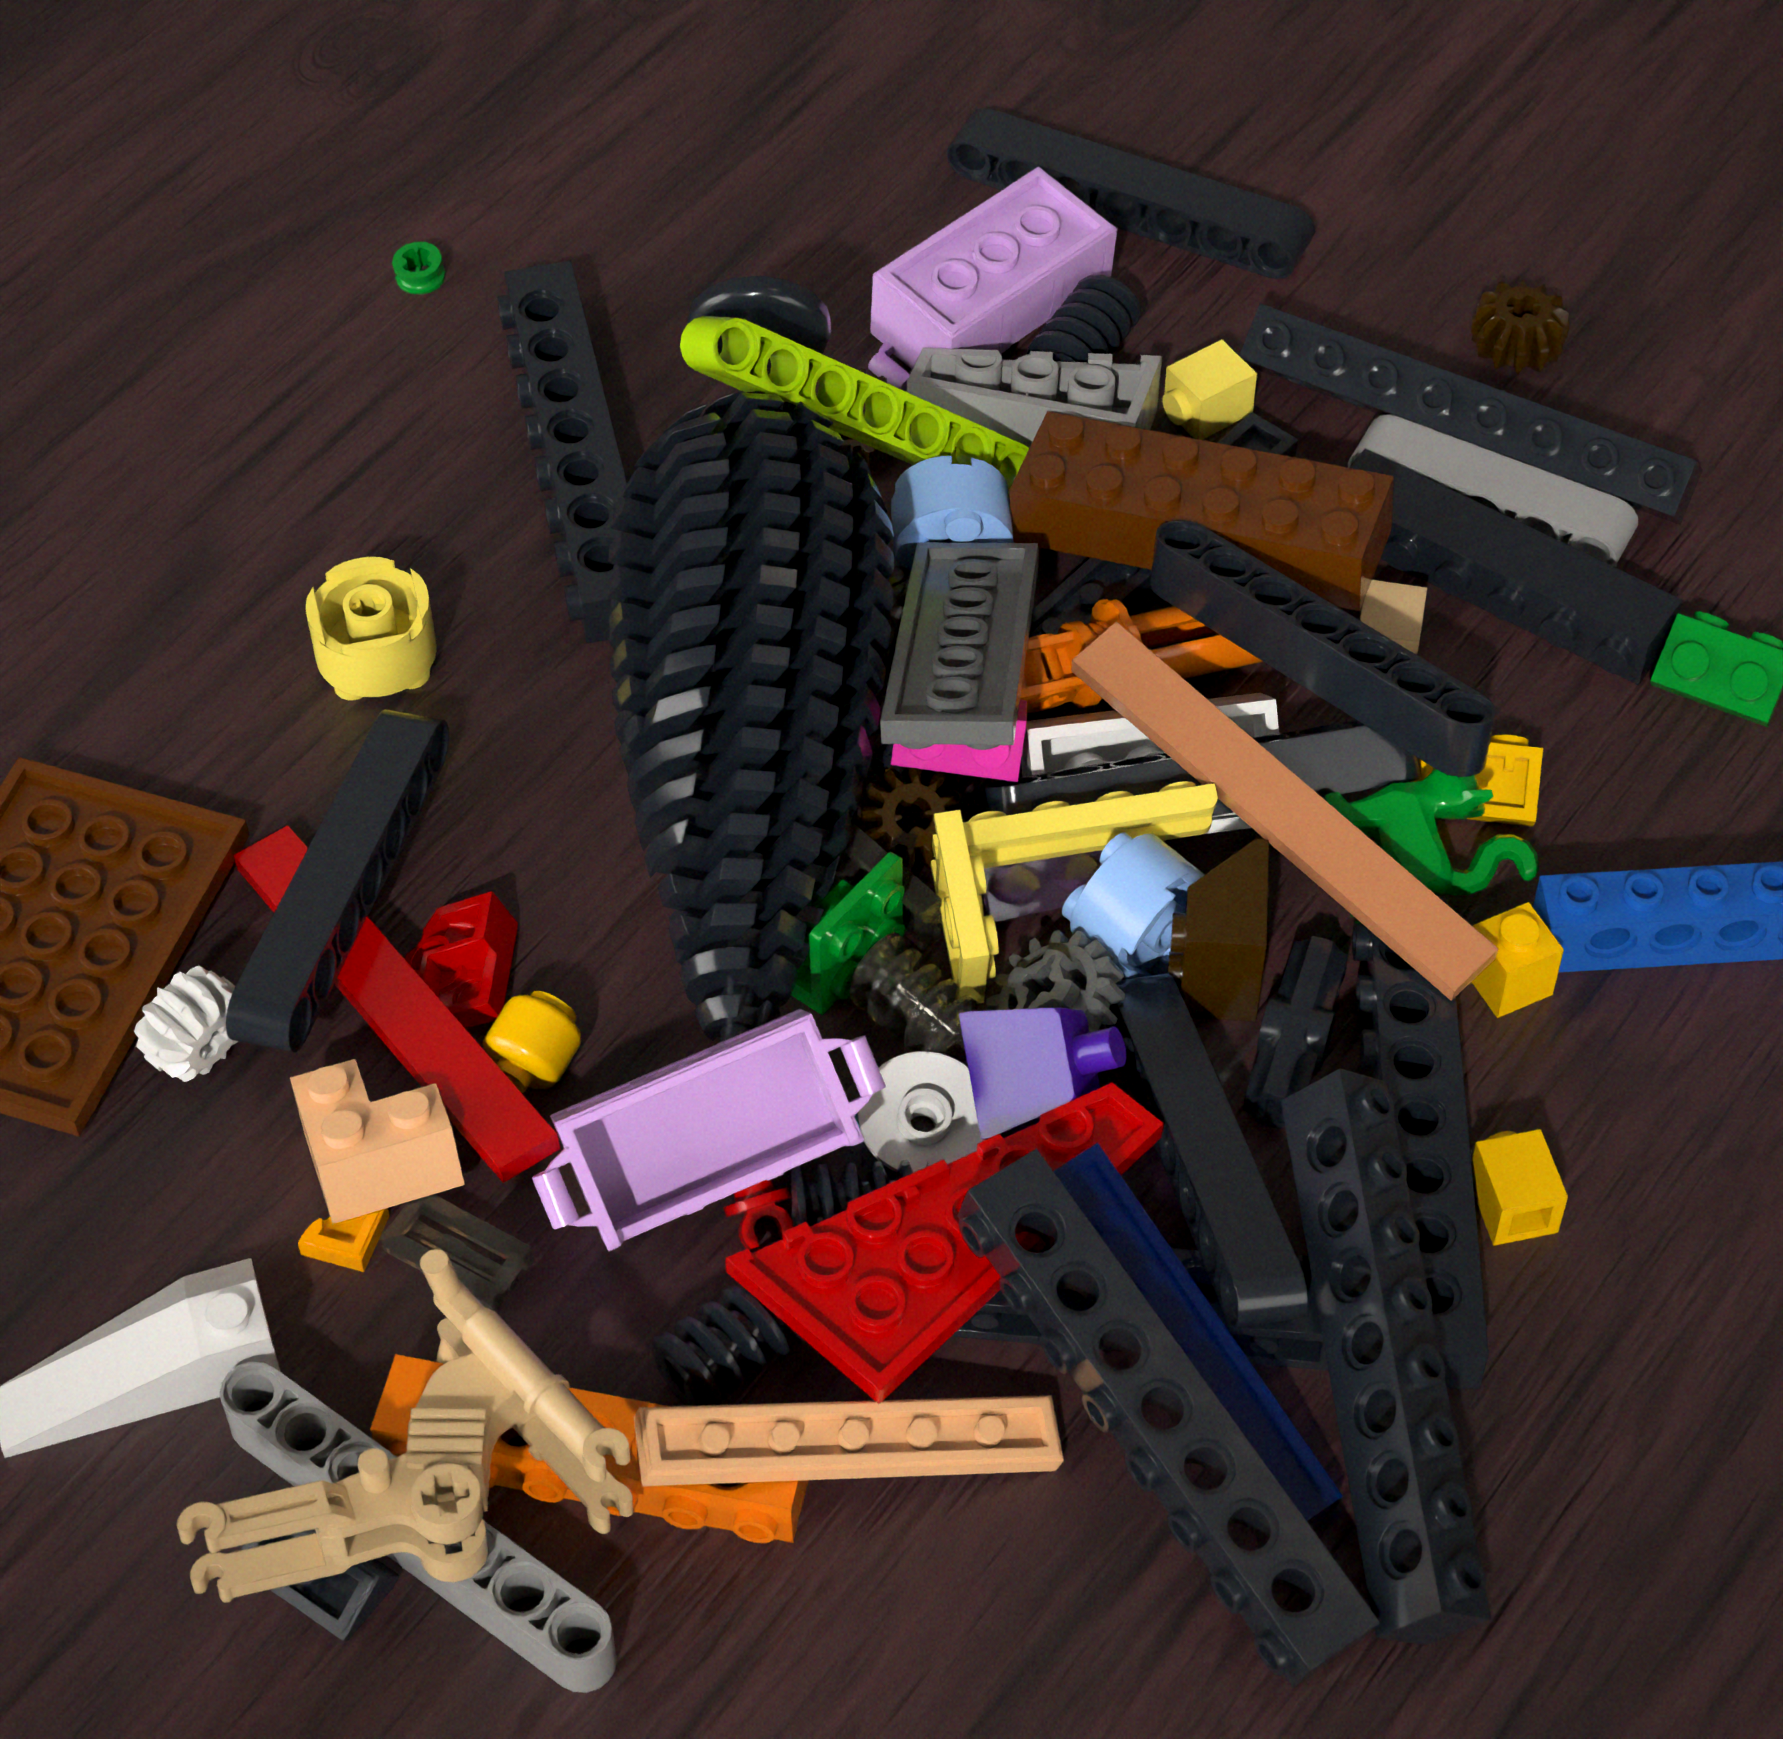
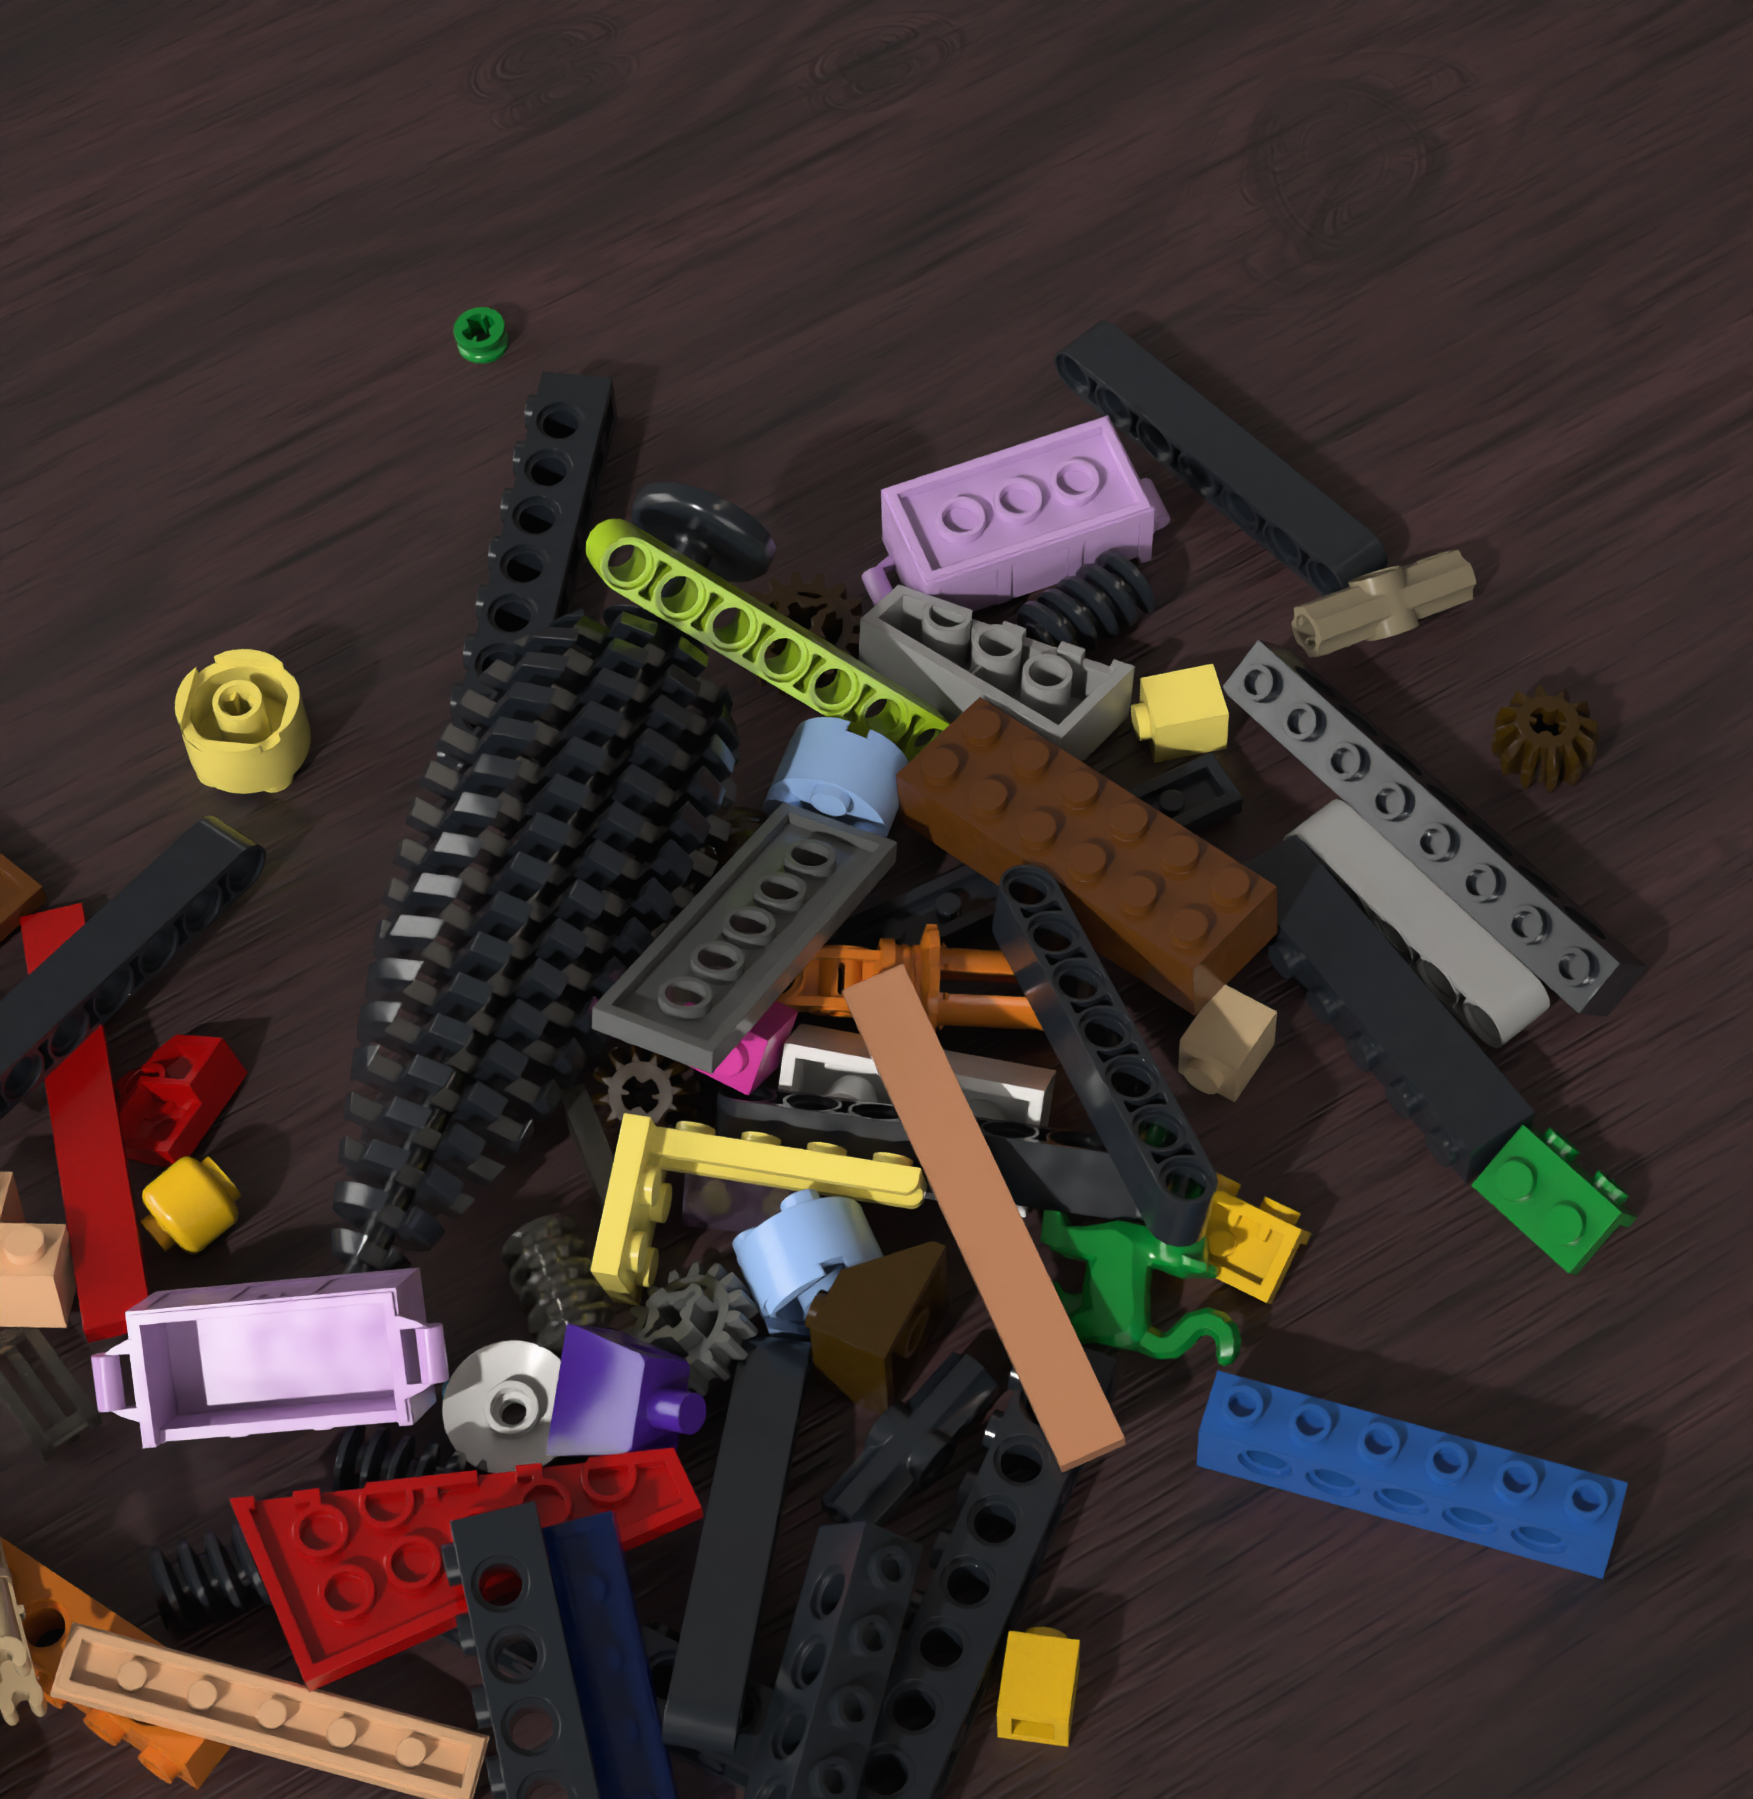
camera: 25 degrees right, 5 degrees up
(756, 1203) = (313, 1444): red plate -> none
(847, 929) = (533, 1184): green bracket -> none
(1333, 260) = (1383, 603): none -> dark tan piece
(1524, 963) = (1159, 1446): yellow brick -> none

